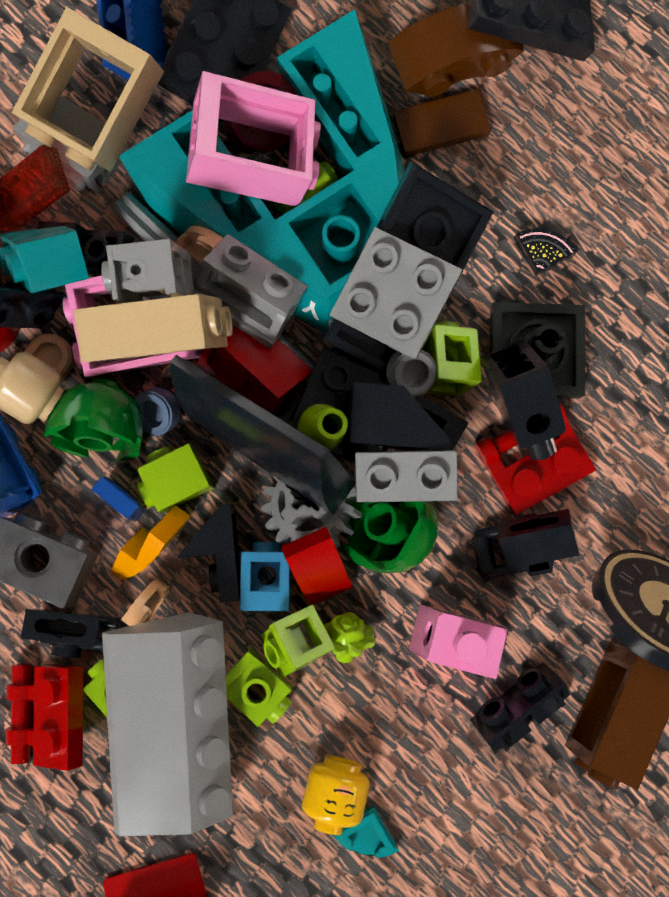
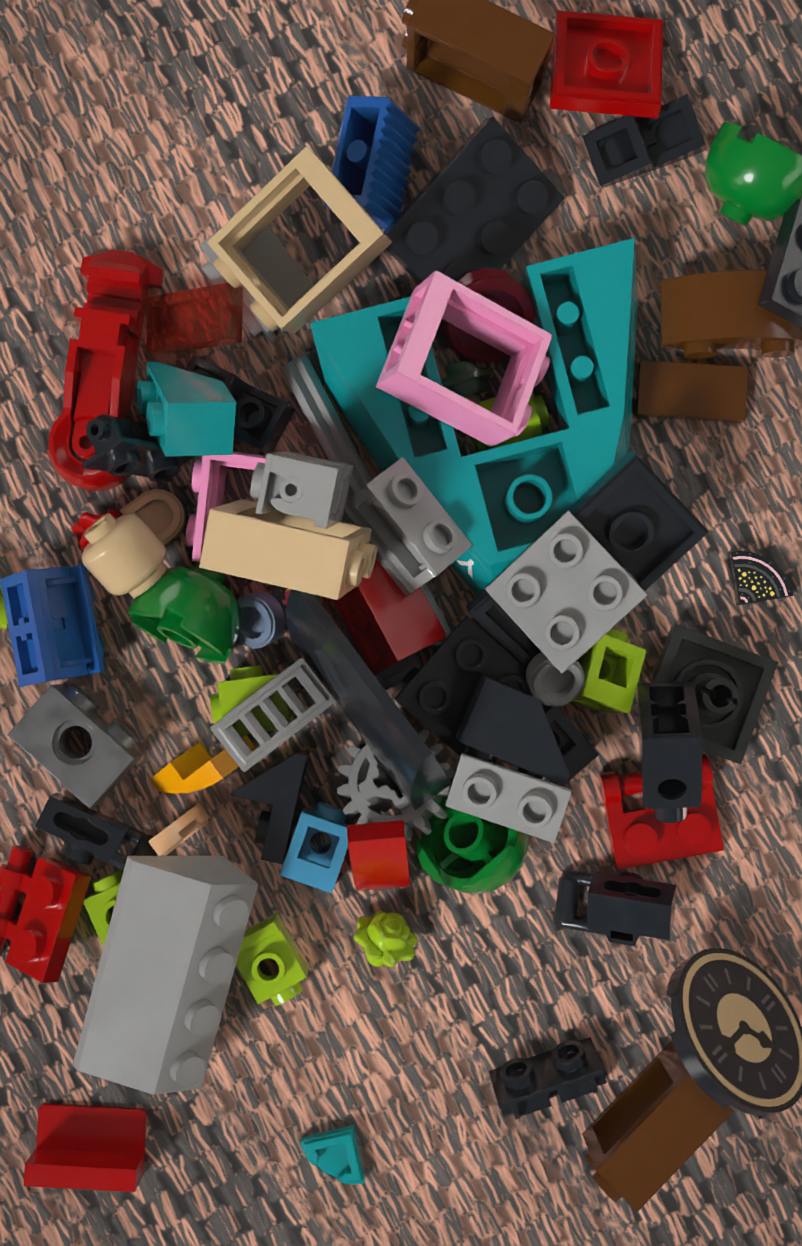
camera: 20 degrees right, 5 degrees up
(119, 498) = (186, 705): blue tile -> none
(153, 498) = (236, 745): none -> light grey slope
(198, 242) = (368, 451): light nougat tile -> none
(286, 645) = (317, 928): lime brick -> none
(311, 425) = (428, 702): lime cone -> none
(335, 794) = (317, 1102): yellow head -> none
(458, 641) = (505, 986): bright pink torso -> none

